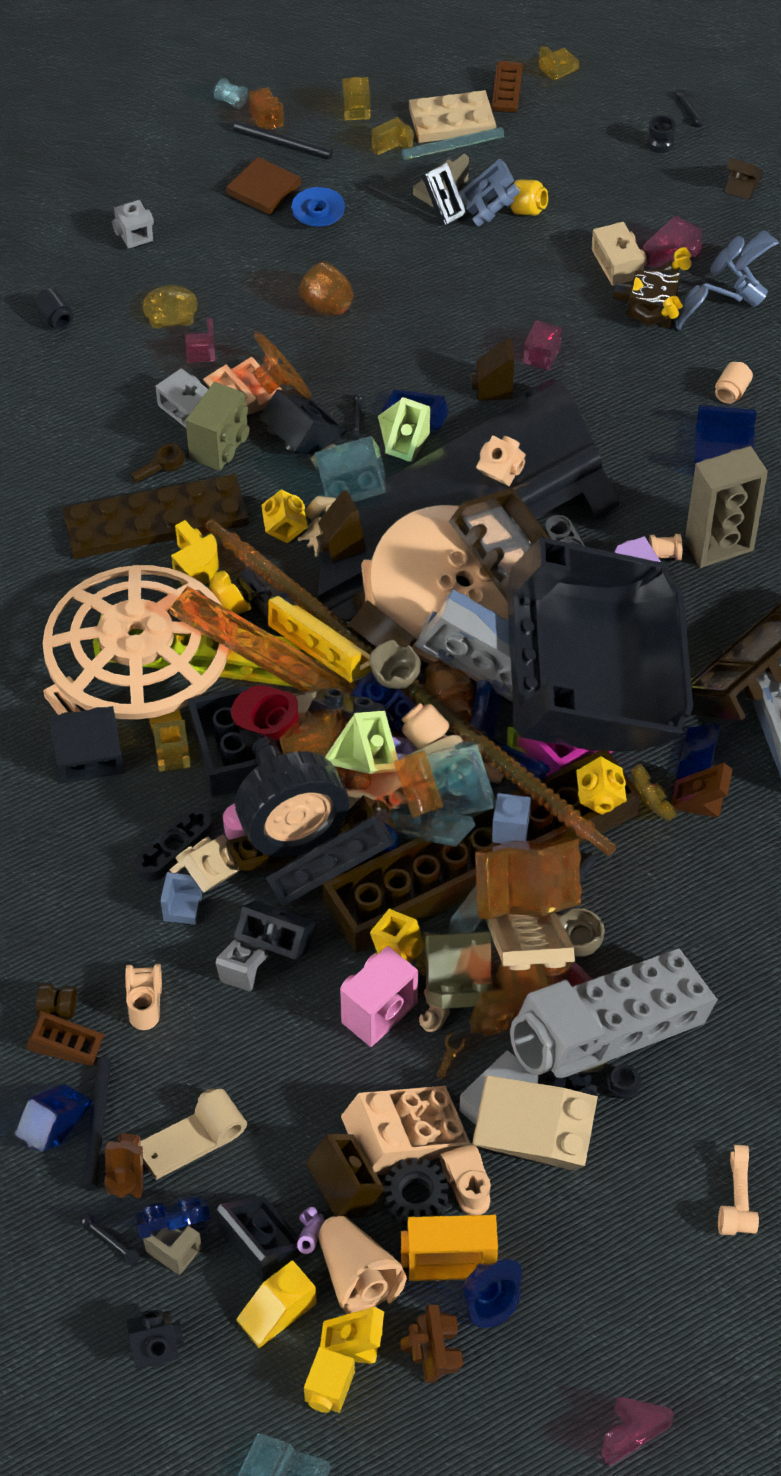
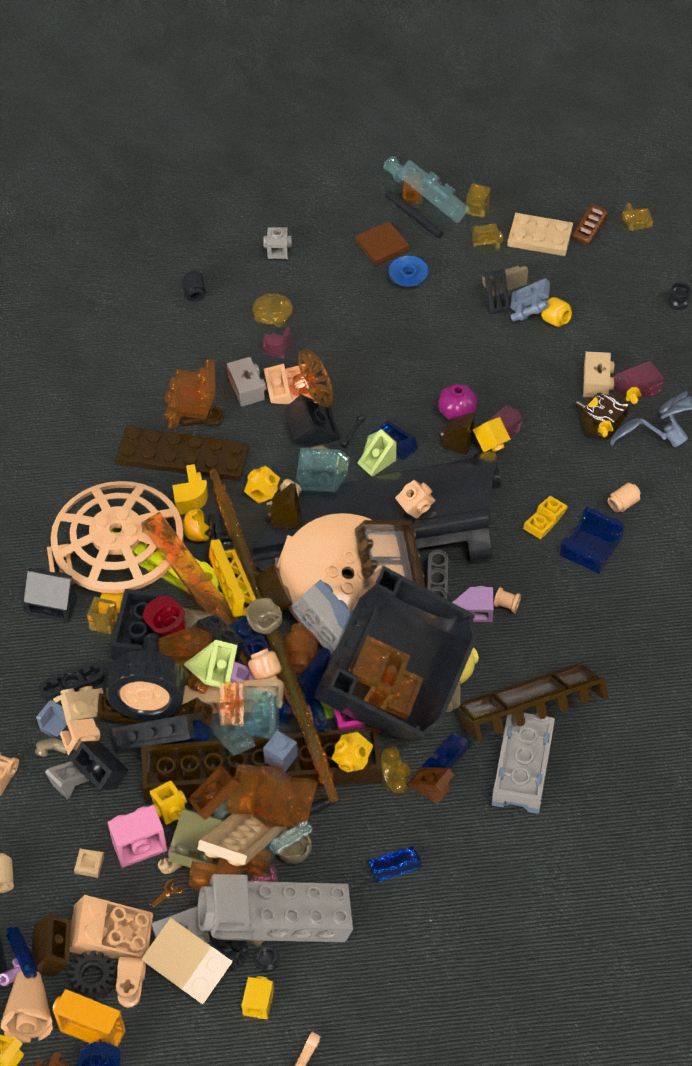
camera: 25 degrees right, 0 degrees up
(133, 435) = (190, 394): none -> clear orange bracket
(193, 929) = (49, 744): none -> dark tan arm
(217, 426) = (251, 406): olive brick -> none
(229, 898) = (79, 731): none -> light nougat window
(298, 102) = (438, 194): none -> clear light blue bracket
(311, 1200) = (22, 952): none -> clear blue axle
(326, 290) = (378, 333): clear orange piece -> none
(326, 1057) = (89, 863): none -> tan tile
(452, 143) = (529, 254): clear light blue bar -> none
(456, 899) = (213, 791): none -> reddish brown tile
(471, 337) = (457, 401): none -> magenta plant
(538, 362) = (492, 435): none -> yellow brick
(579, 916) = (290, 837): none -> clear light blue axle
(599, 673) = (385, 674): none -> clear orange bracket
(642, 1132) = (257, 997): none -> yellow brick
(652, 437) = (545, 518): none -> yellow slope
(712, 905) = (394, 864): none -> clear blue slope
(725, 506) = (552, 587): dark tan brick -> none

